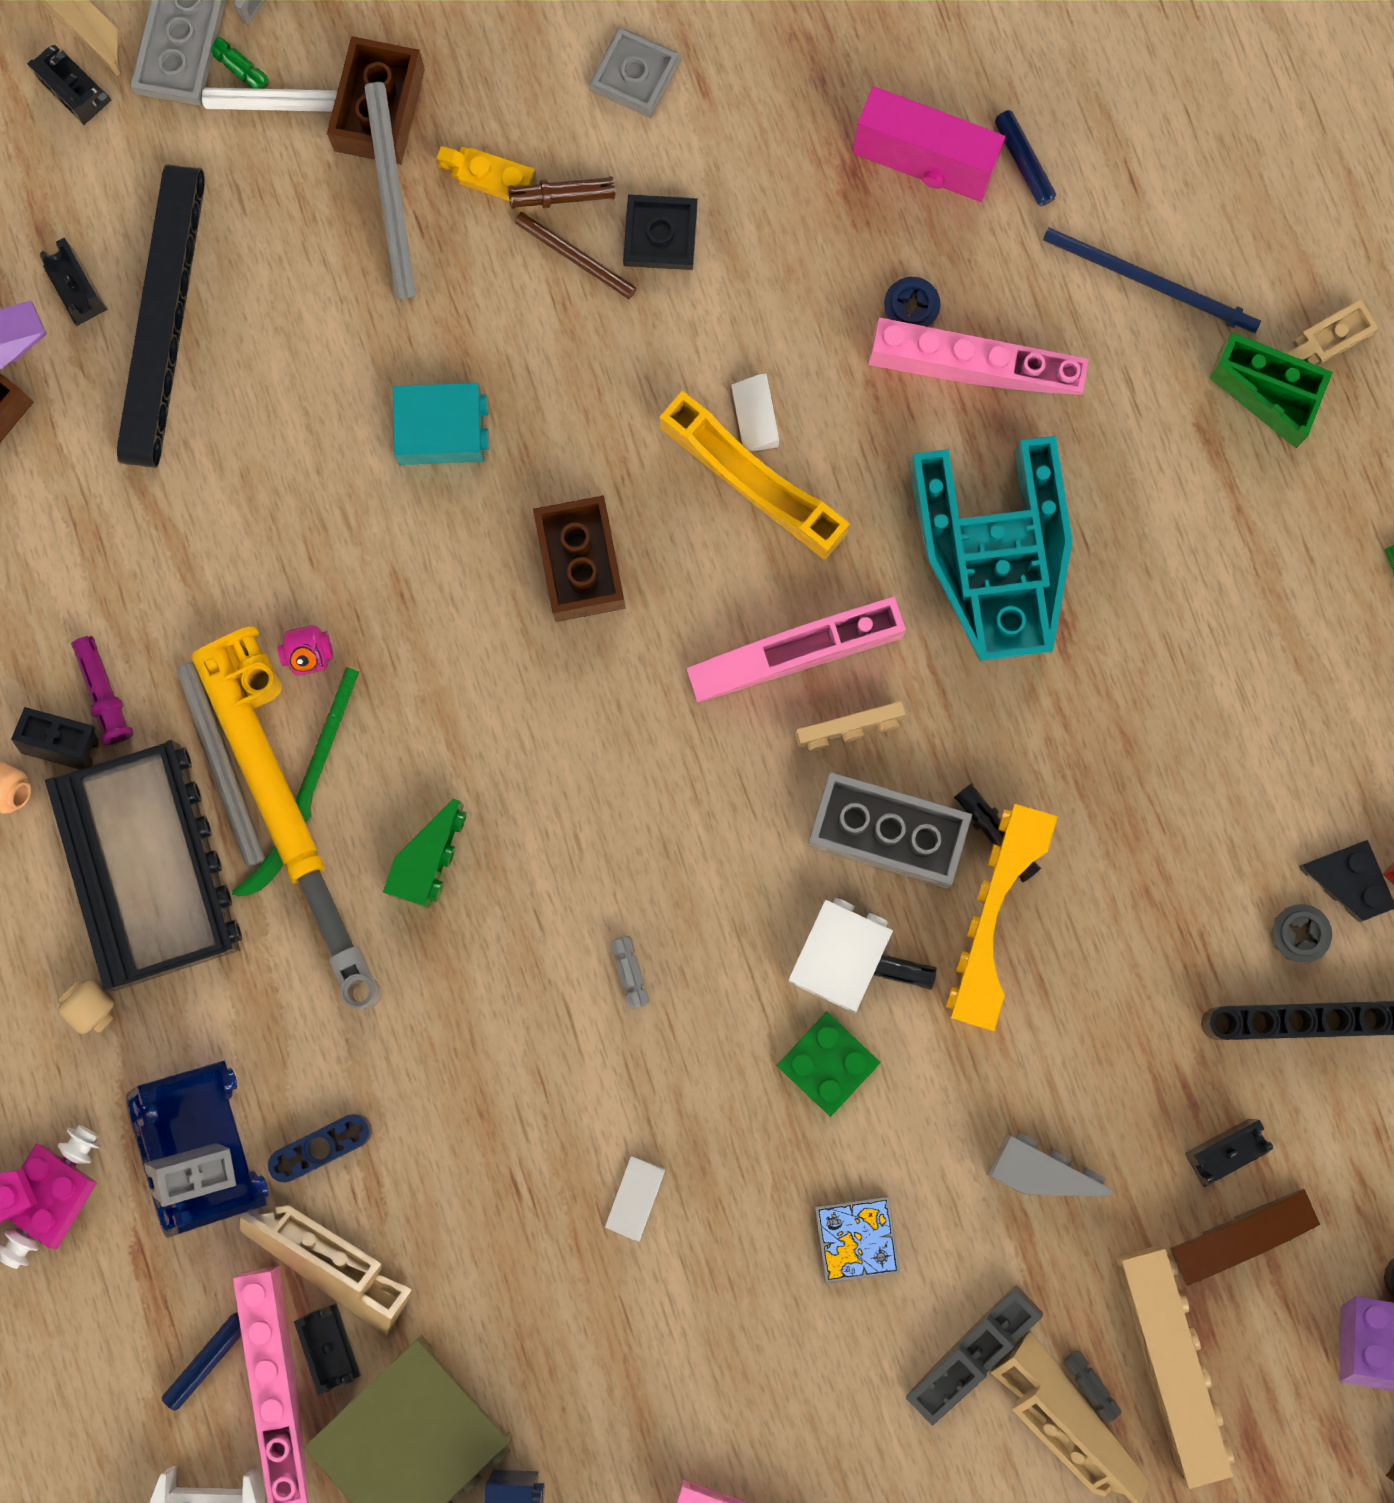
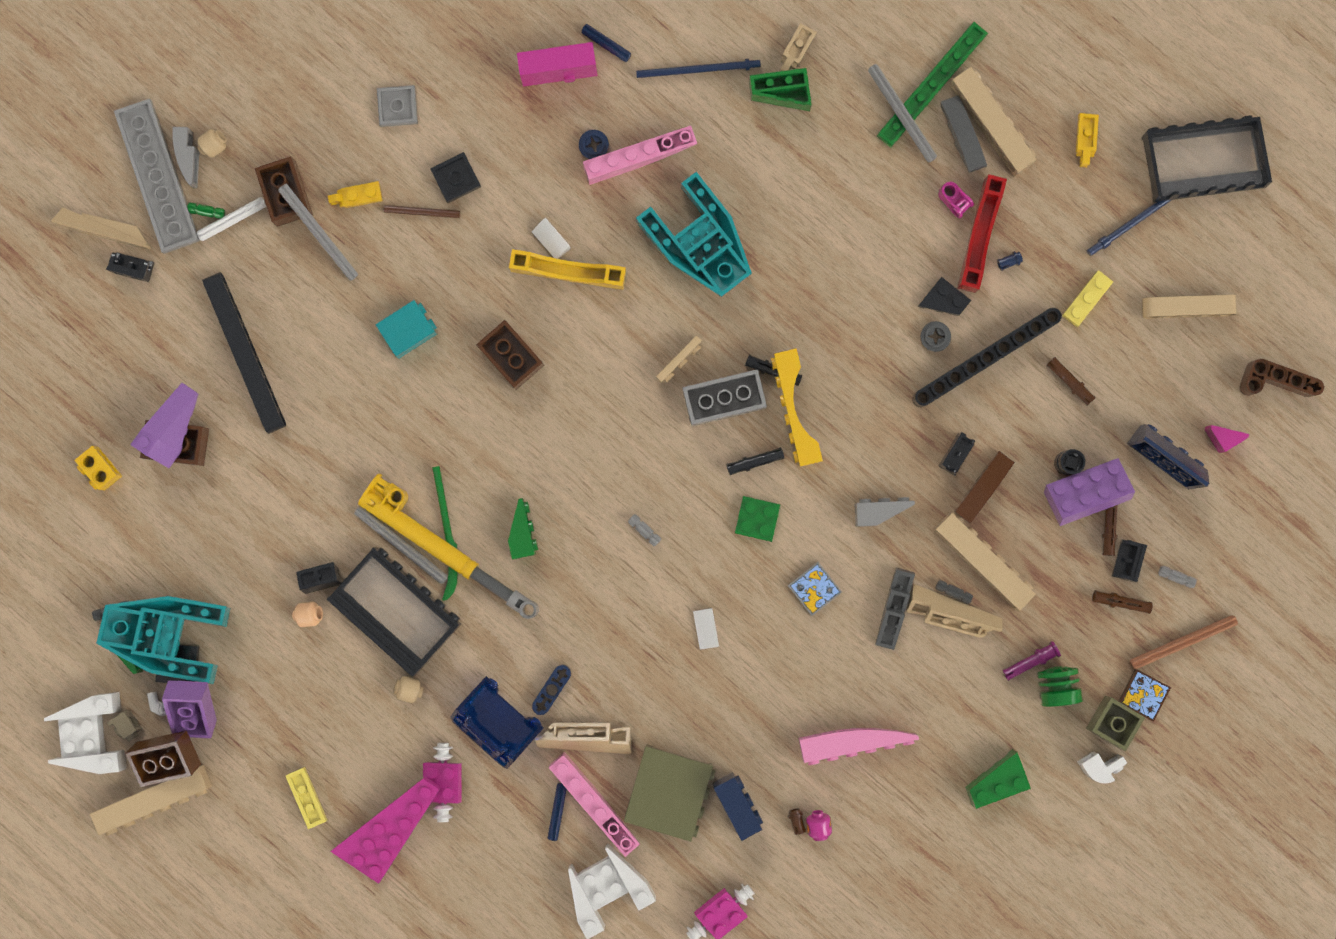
camera: 30 degrees left, 5 degrees up
(72, 283) = (192, 362): black hinge -> none
(105, 704) = (332, 549): magenta pin -> none
(191, 1174) = (502, 733): light grey hinge -> none
(305, 650) = (409, 470): dark pink head -> none
(327, 1348) = (608, 774): black hinge -> none
(561, 192) = (396, 186): reddish brown pin -> none
(798, 649) = (635, 339): bright pink slope -> none
(841, 954) = (735, 466): white panel -> none

